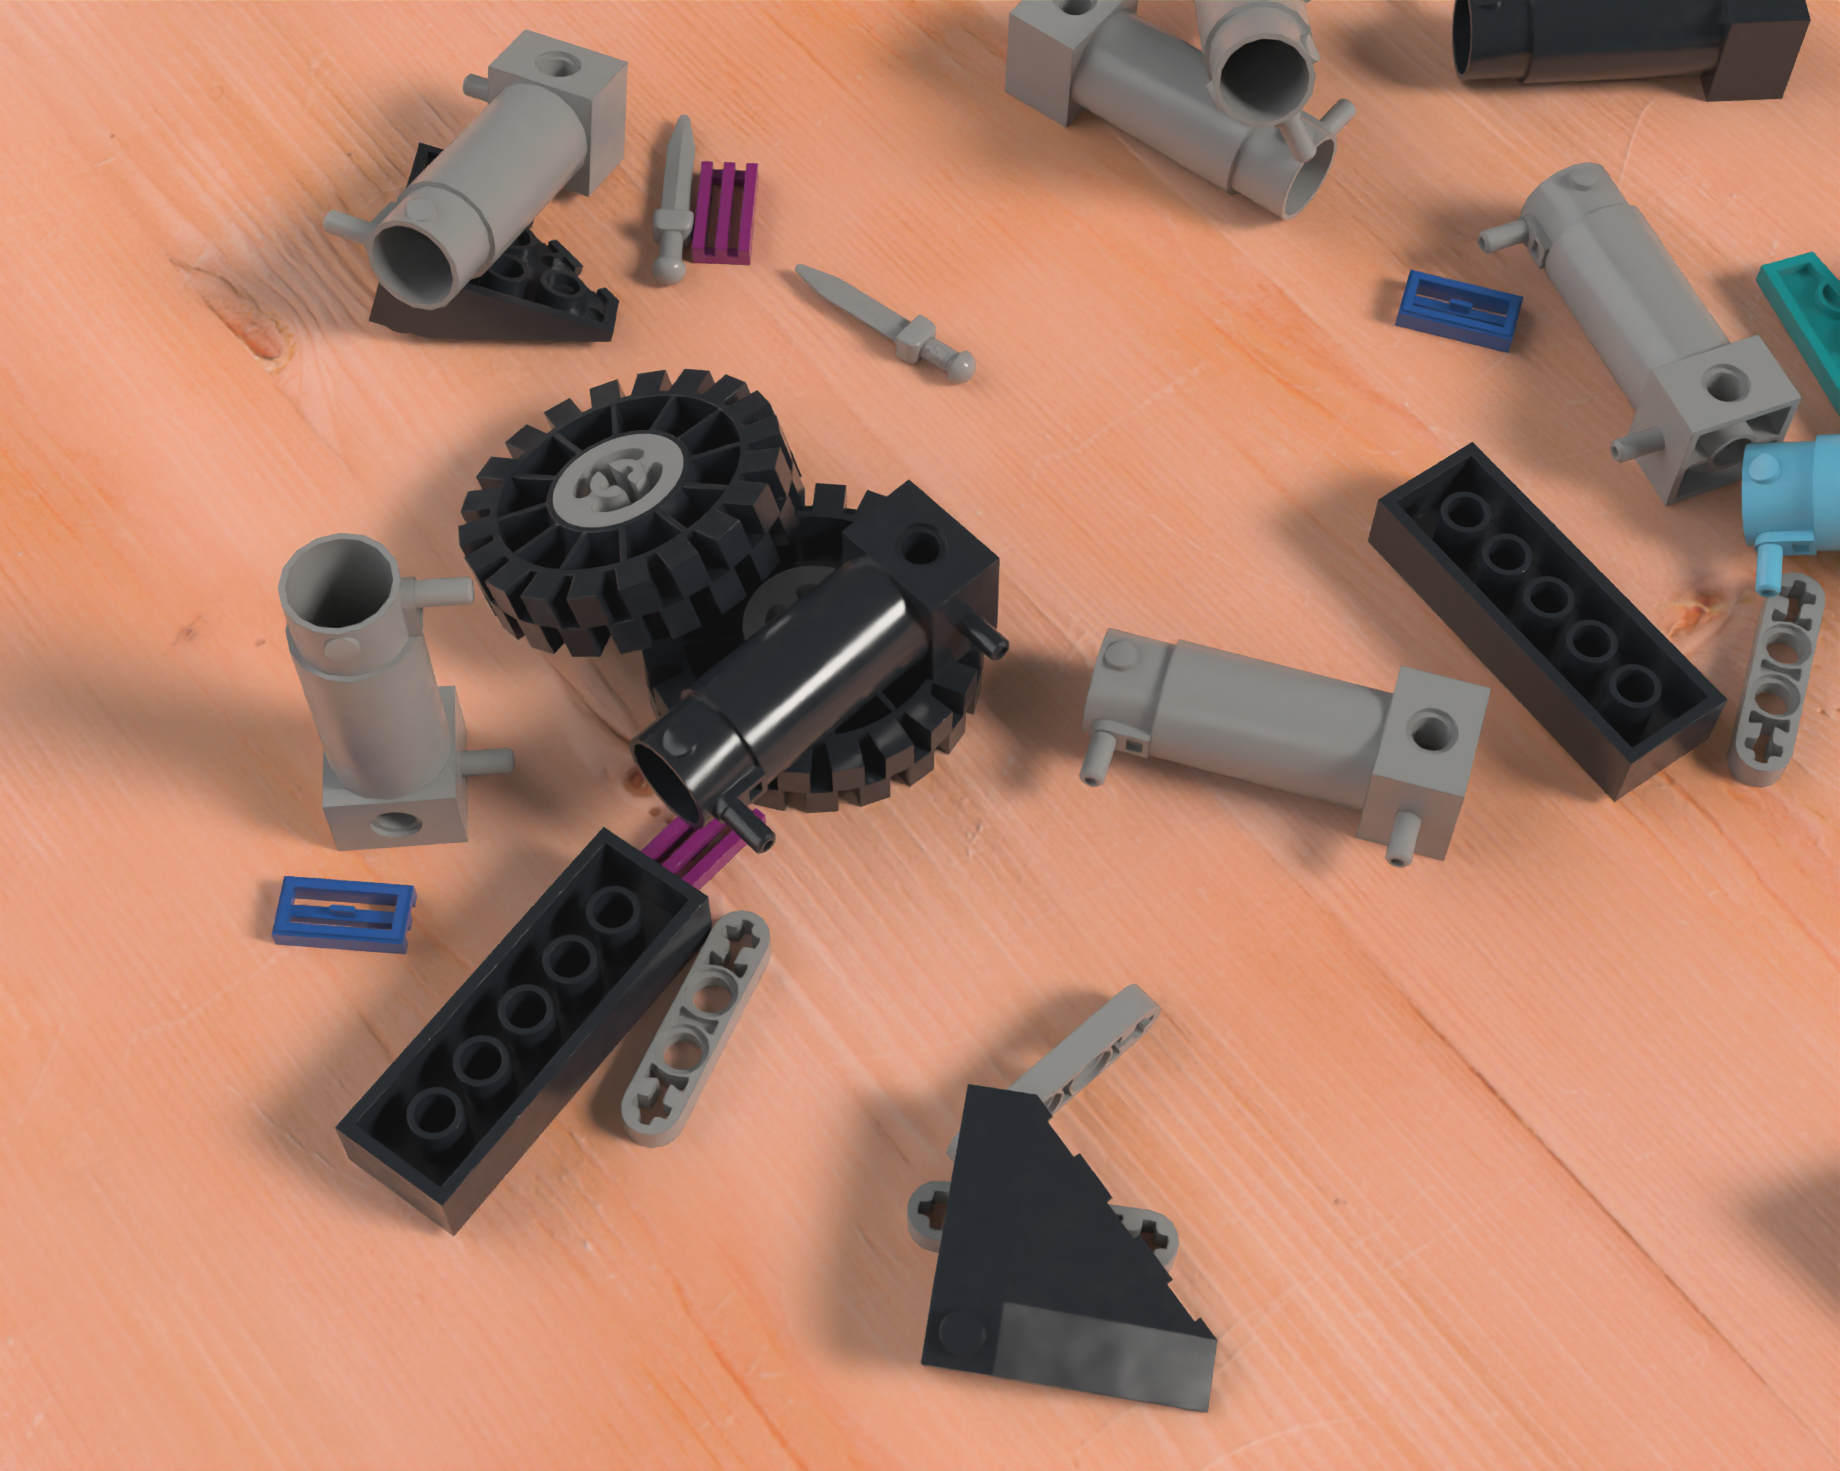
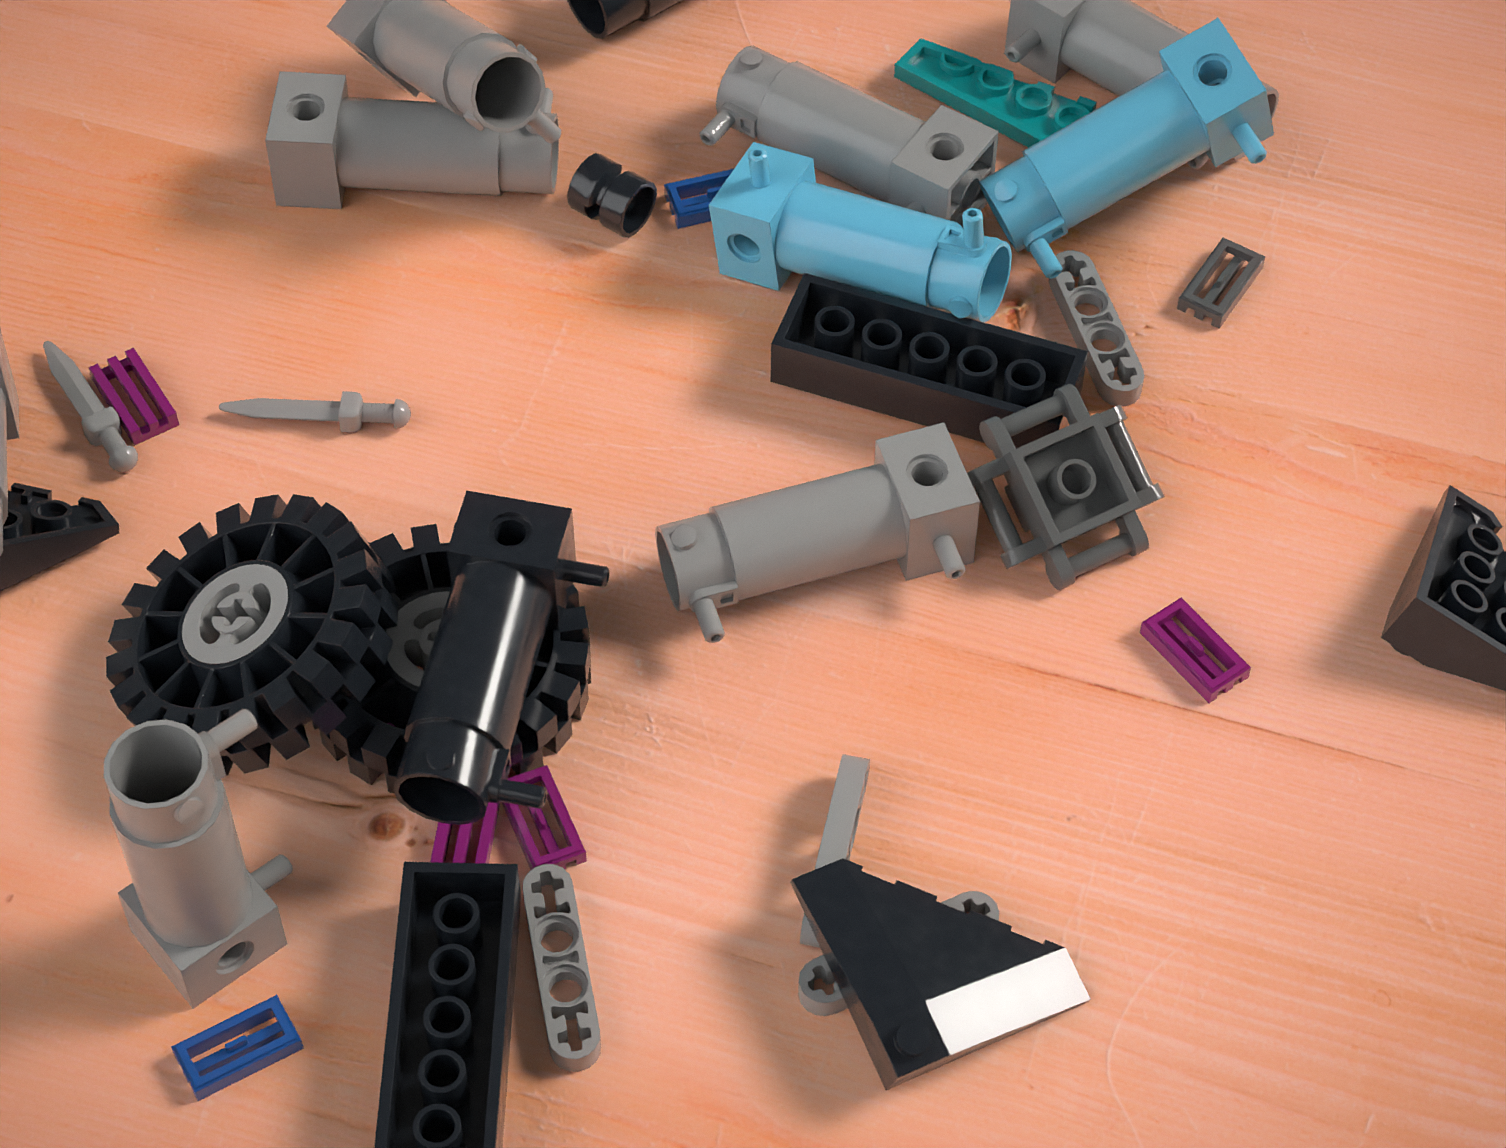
camera: 35 degrees left, 5 degrees down
(778, 913) = (556, 856): none -> magenta tile
(1341, 252) = (616, 199): none -> black wheel
(1494, 374) = (780, 222): none -> medium azure piece
(1593, 834) = (1065, 485): none -> dark grey brick
(1623, 1154) = (1188, 654): none -> magenta tile

